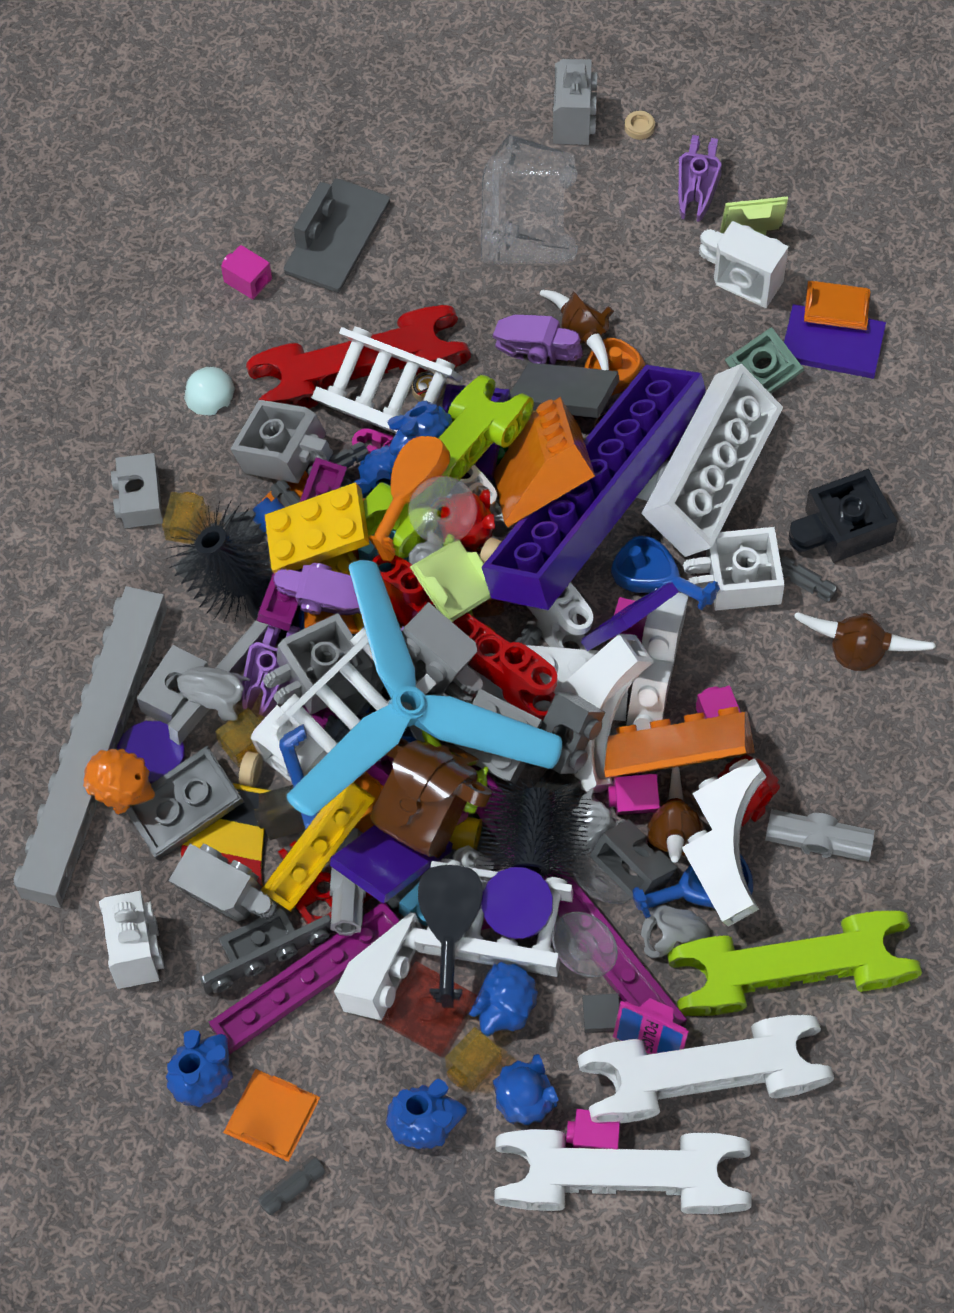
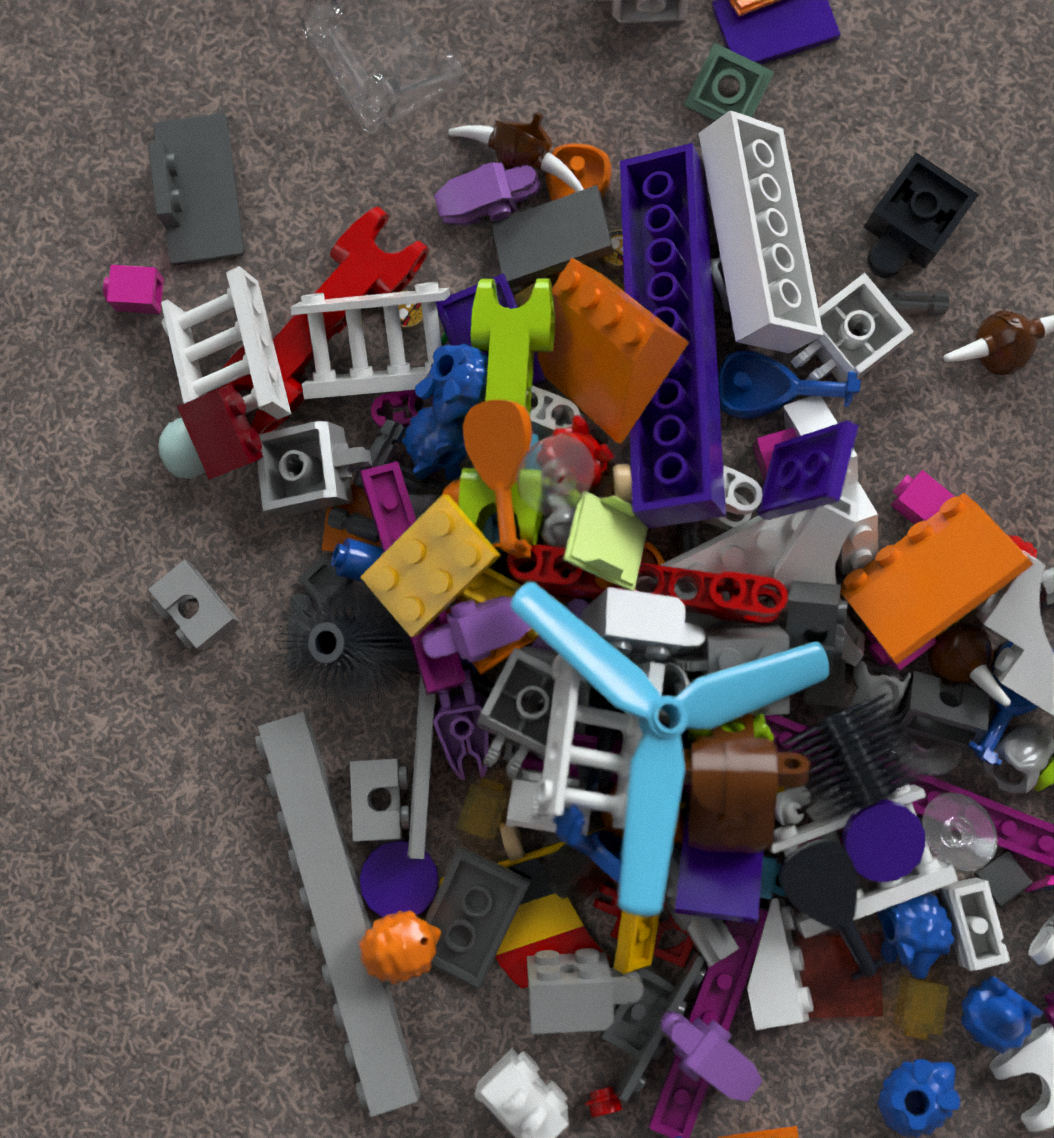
camera: 30 degrees left, 20 degrees up
(179, 508) = (260, 606): clear yellow brick -> none
(188, 983) = (603, 1102): none -> red plate
(213, 689) = (428, 790): light grey piece -> none
(237, 378) = (221, 431): none -> dark red brick
(288, 985) = (710, 1055): none -> medium lavender hinge
(293, 357) = (251, 328): none -> white fence
(552, 1020) = (974, 924): none -> white brick

